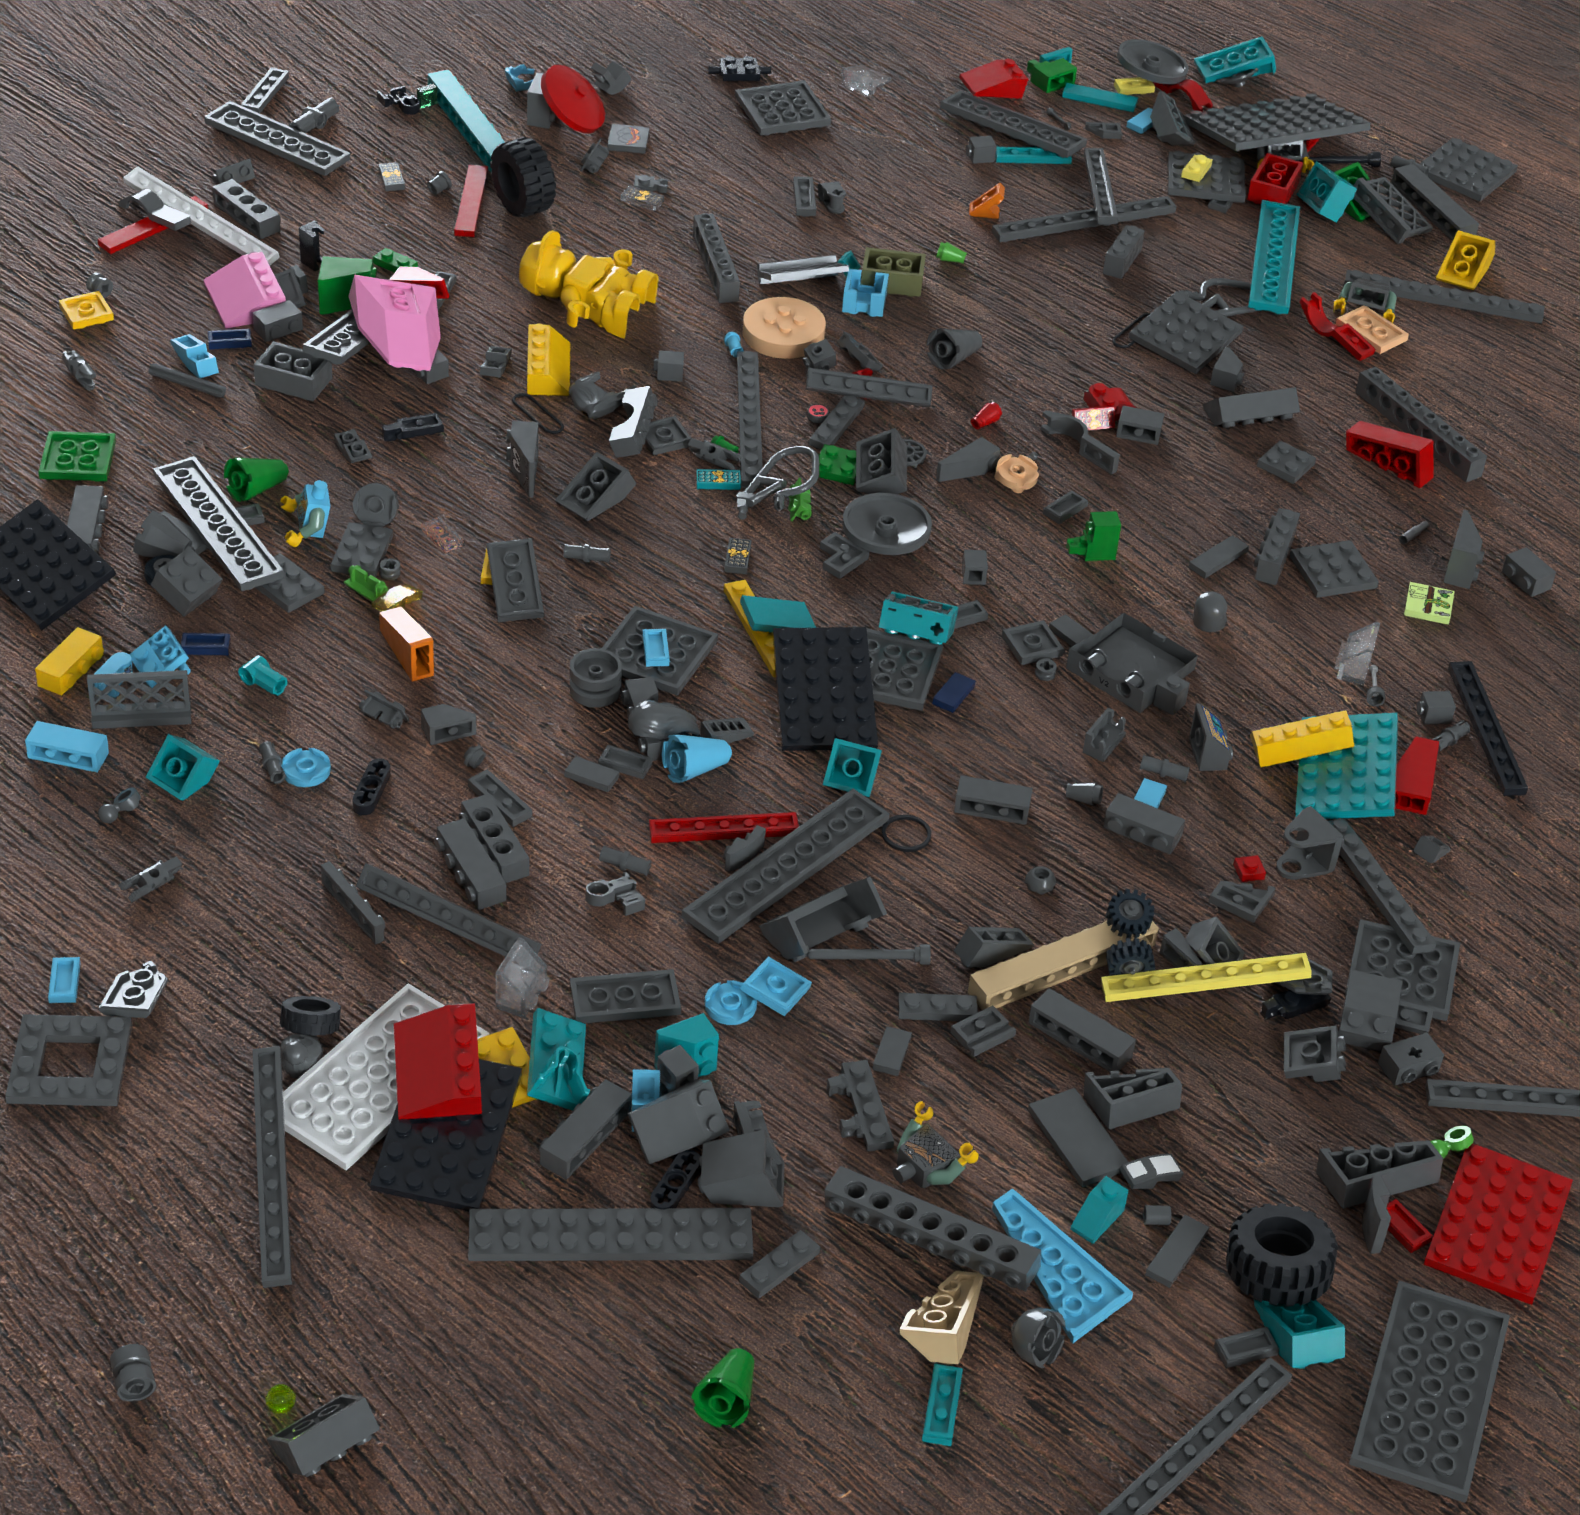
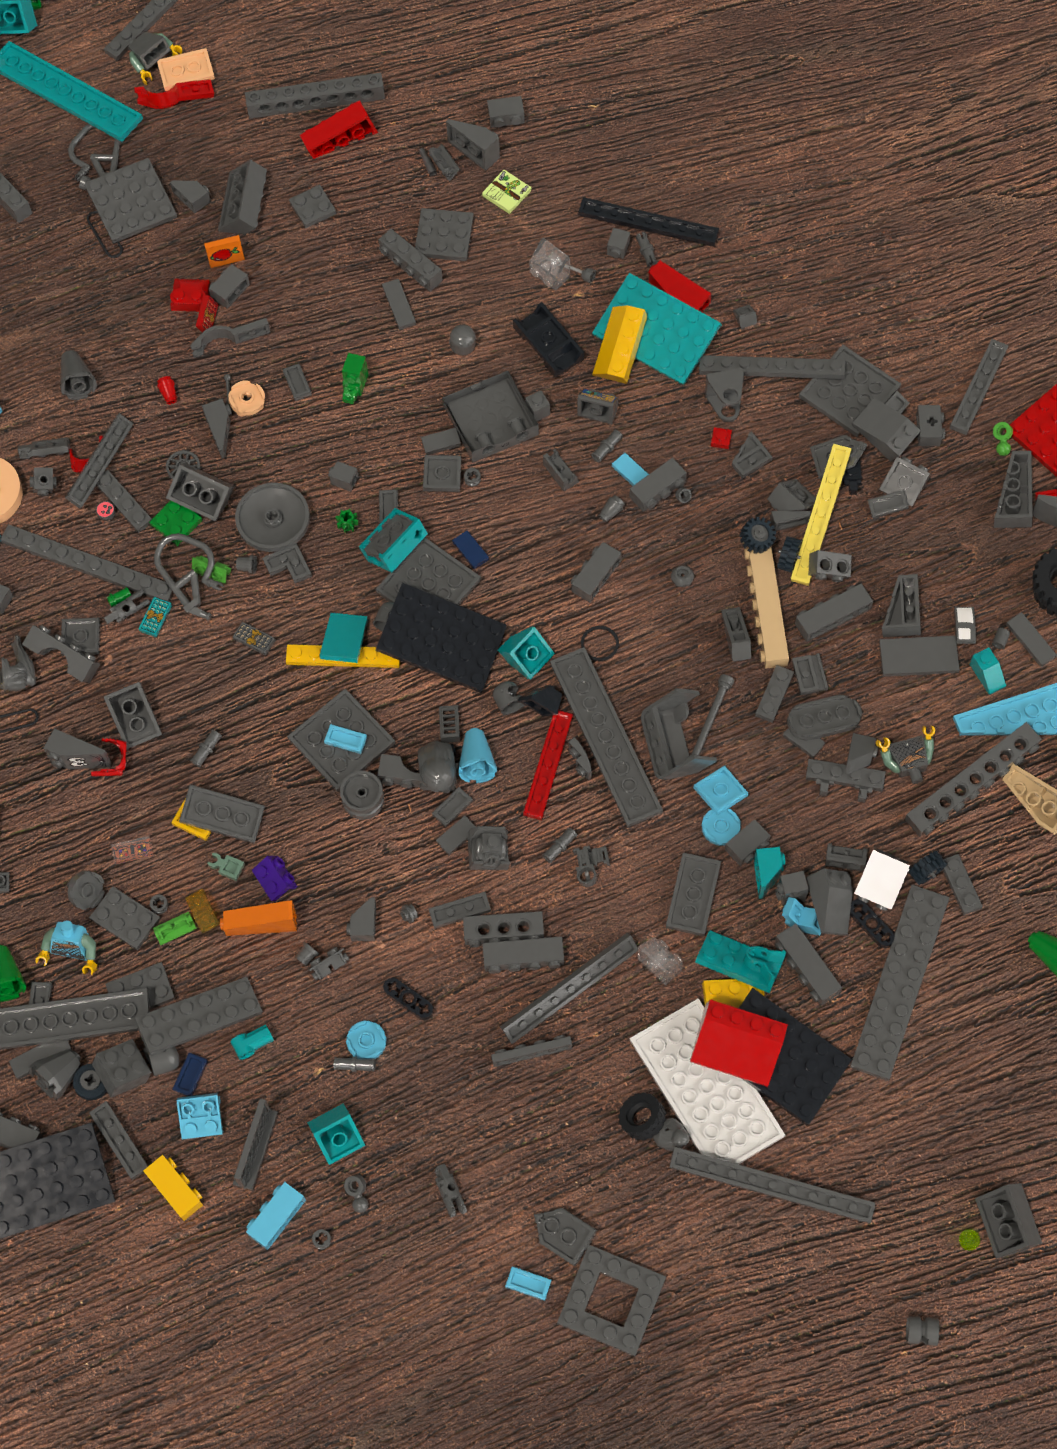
camera: 60 degrees left, 25 degrees up
(57, 787) = (317, 1234): none -> dark grey bush
(110, 607) = (119, 1140): none -> dark grey plate
(117, 663) = (197, 1152): medium azure leg -> none
(211, 611) = (163, 1061): none -> dark grey helmet
(272, 621) = (198, 1016): none -> dark grey plate
(389, 689) = (306, 954): none -> dark grey piece
(458, 604) = (229, 867): none -> sand green plate
(465, 642) = (274, 877): none -> dark purple bracket
(540, 497) = (118, 771): none -> red helmet
(587, 799) = (488, 848): none -> dark grey brick
(730, 1025) = (744, 844): none -> dark grey brick
(779, 1210) = (927, 867): none -> black wheel
(786, 761) = (505, 694): none -> dark grey helmet
(797, 789) = (542, 700): none -> black slope
(823, 530) = (247, 564): none -> dark grey piece
(897, 1098) = (860, 752): none -> dark grey slope
(922, 583) = (347, 520): none -> green gear
(932, 1060) = (824, 717): none -> dark grey tile
(1142, 849) = (686, 493): none -> dark grey hinge
(1146, 1001) = (829, 561): none -> dark grey brick
(1176, 404) = (224, 251): none -> orange tile
(1261, 682) = (549, 340): none -> black piece
(1269, 1046) = (888, 504): none -> dark grey tile
(1421, 539) = (444, 161): none -> dark grey hinge

